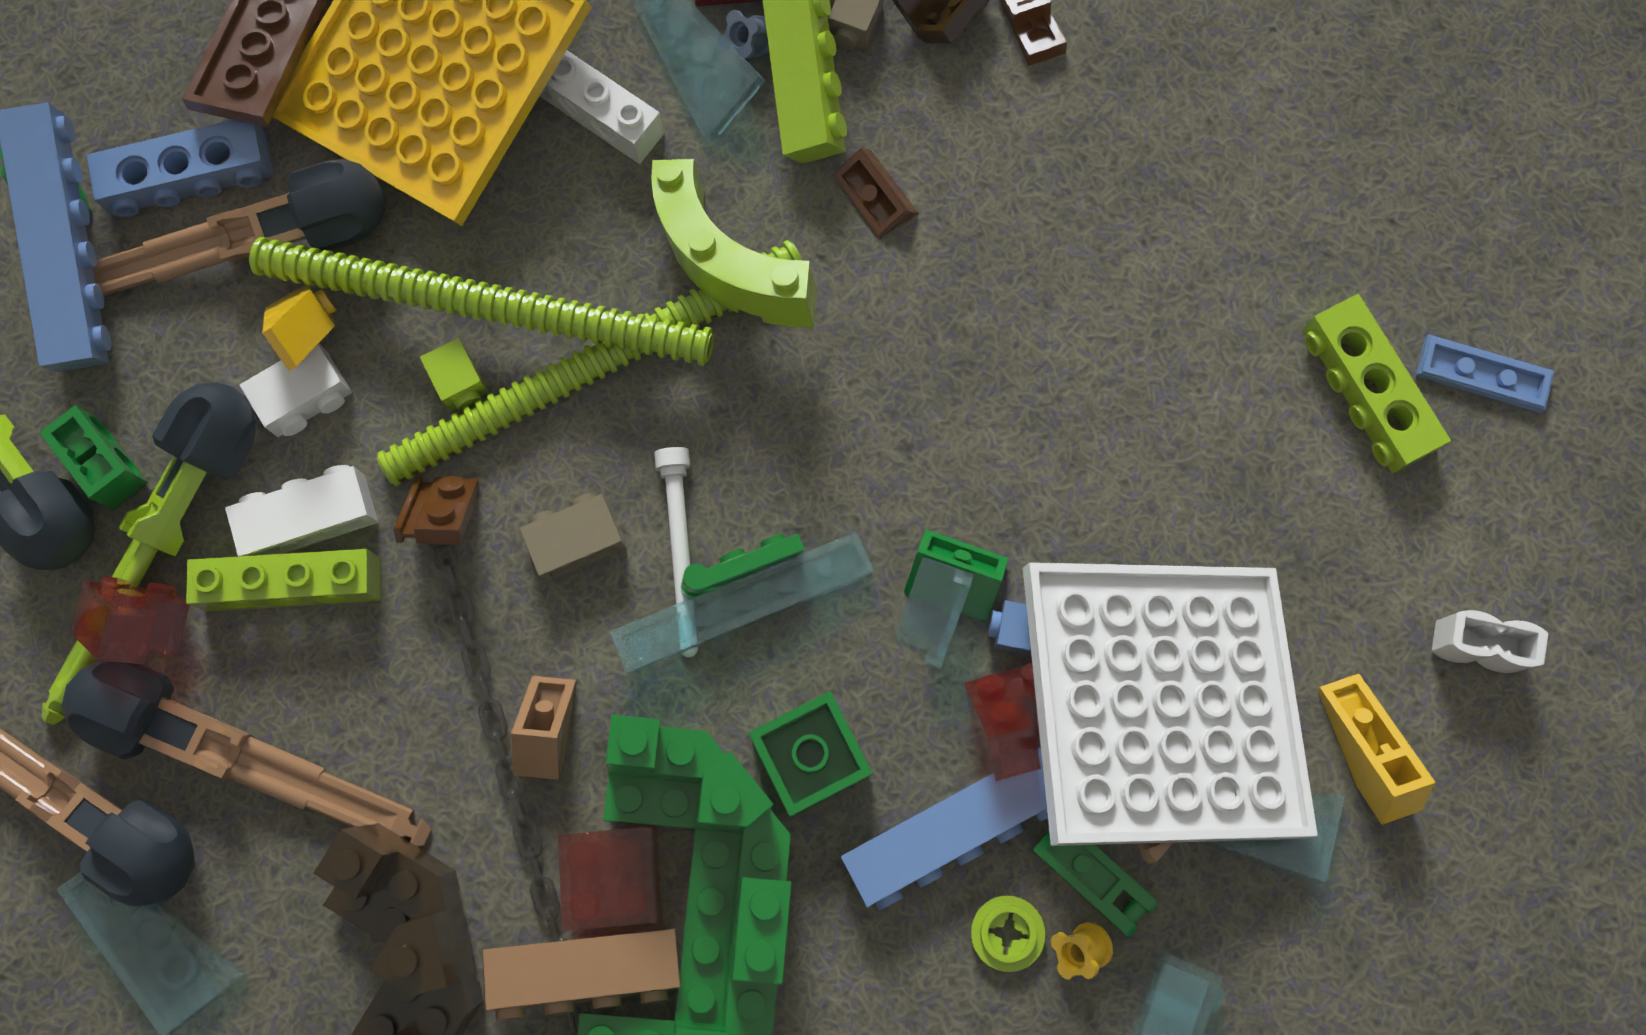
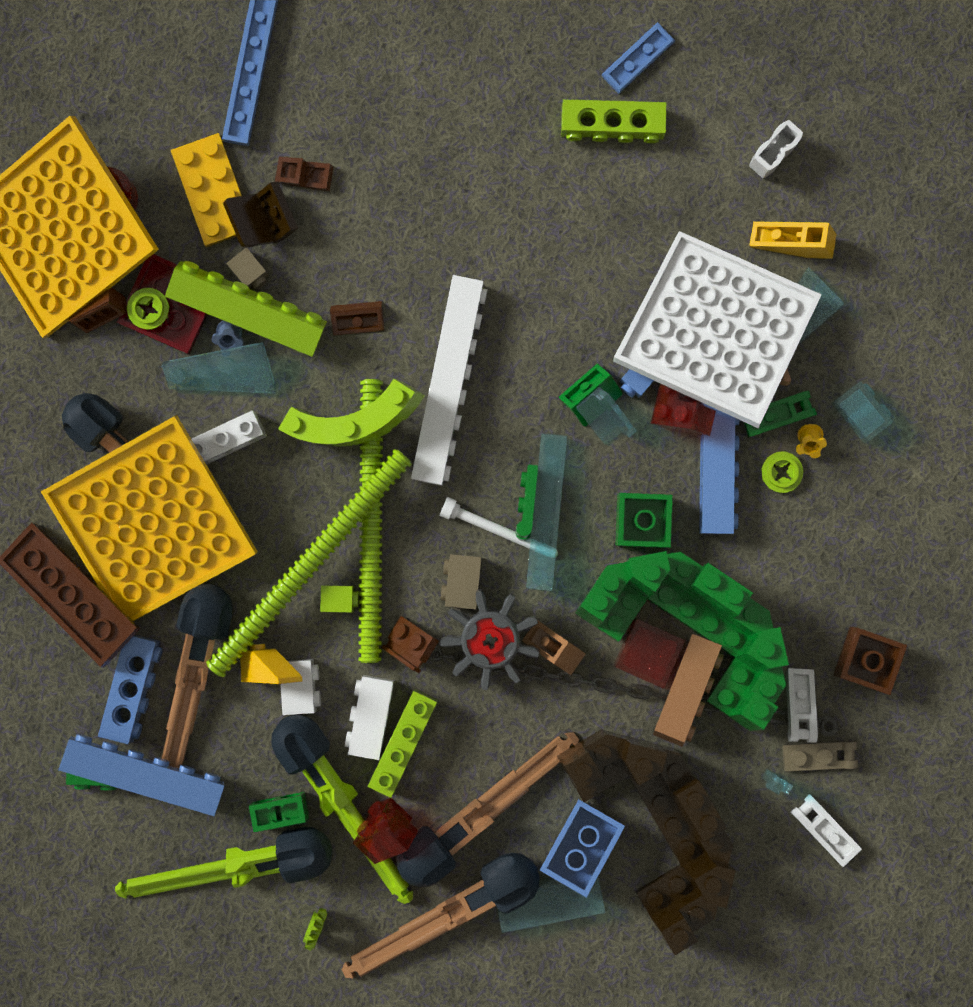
camera: 60 degrees left, 10 degrees up
(242, 941) = (582, 848): none -> medium blue brick
(479, 630) = (484, 653): none -> dark grey gear
(857, 358) = (447, 380): none -> white brick

